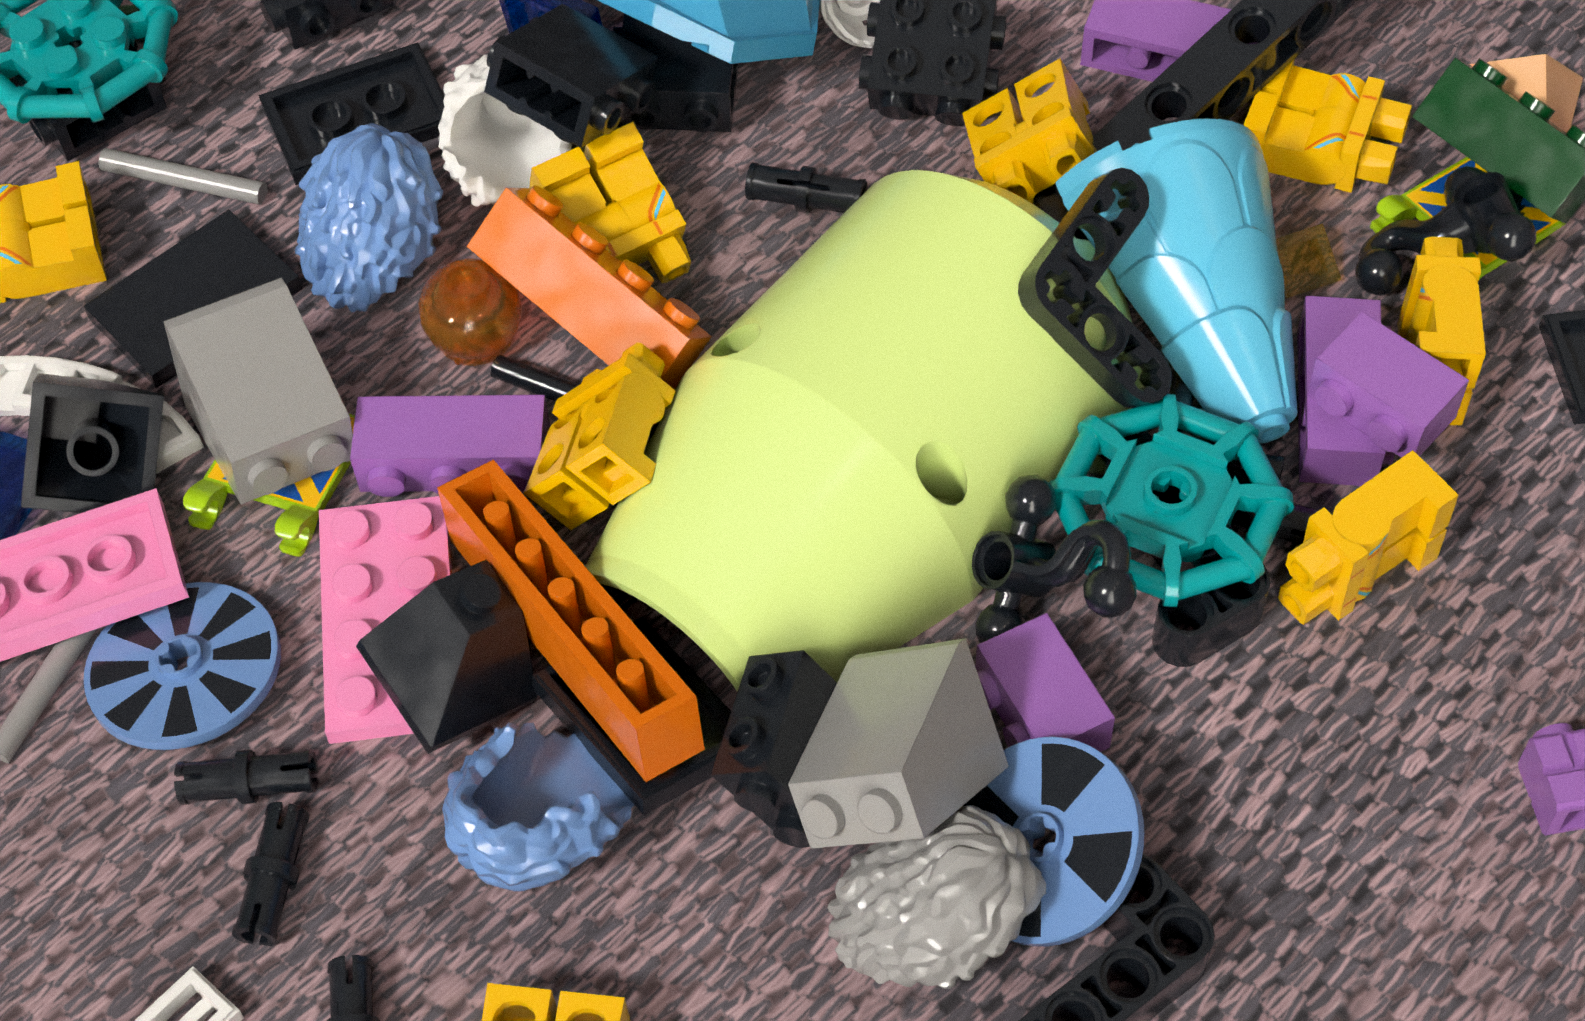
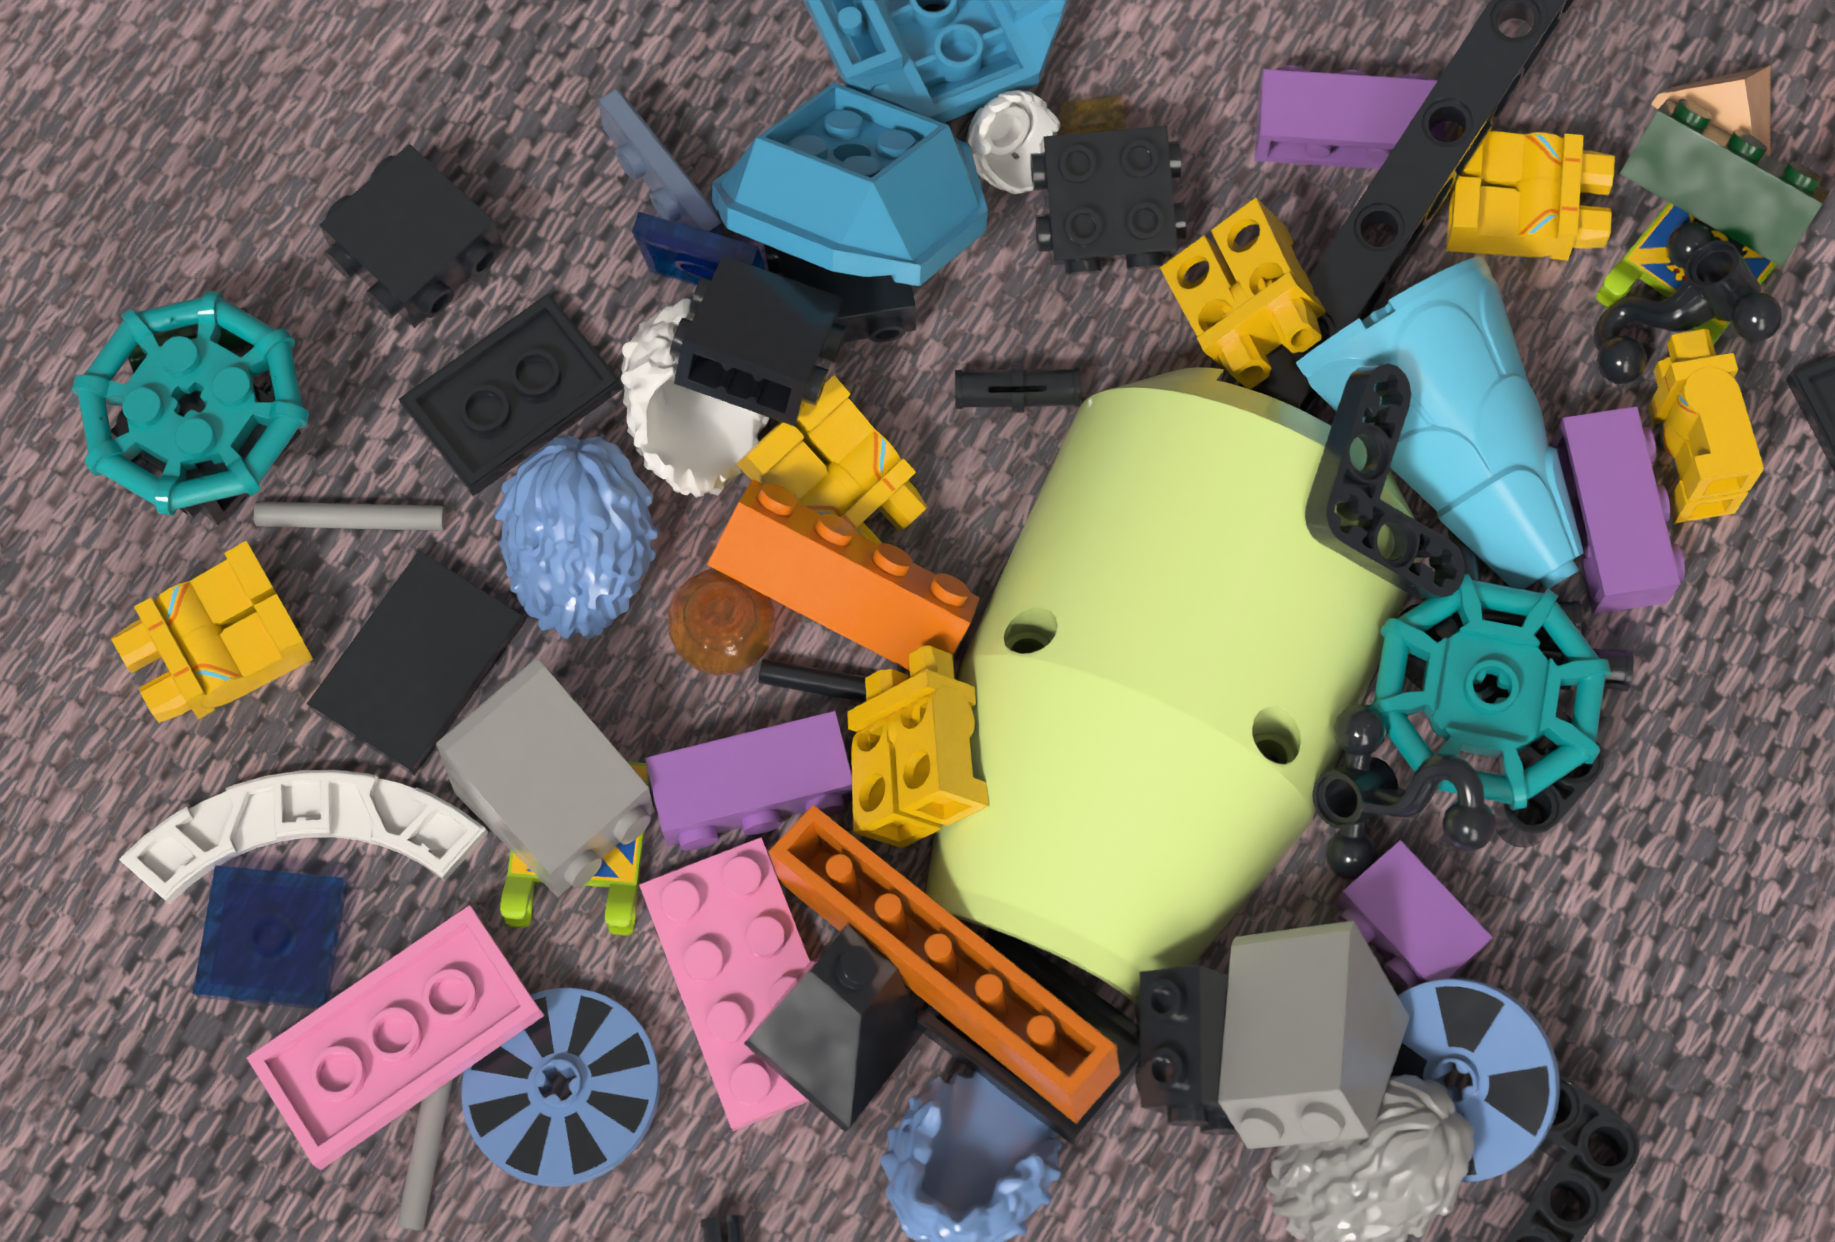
camera: 15 degrees left, 15 degrees up
(89, 443) = (384, 872): black slope -> none
(246, 777) = (670, 1193): black pin -> none
(1307, 261) = (1545, 355): clear yellow slope -> none
(1370, 532) = (1668, 704): yellow hips -> none
(1386, 387) = (1672, 521): medium lavender brick -> none

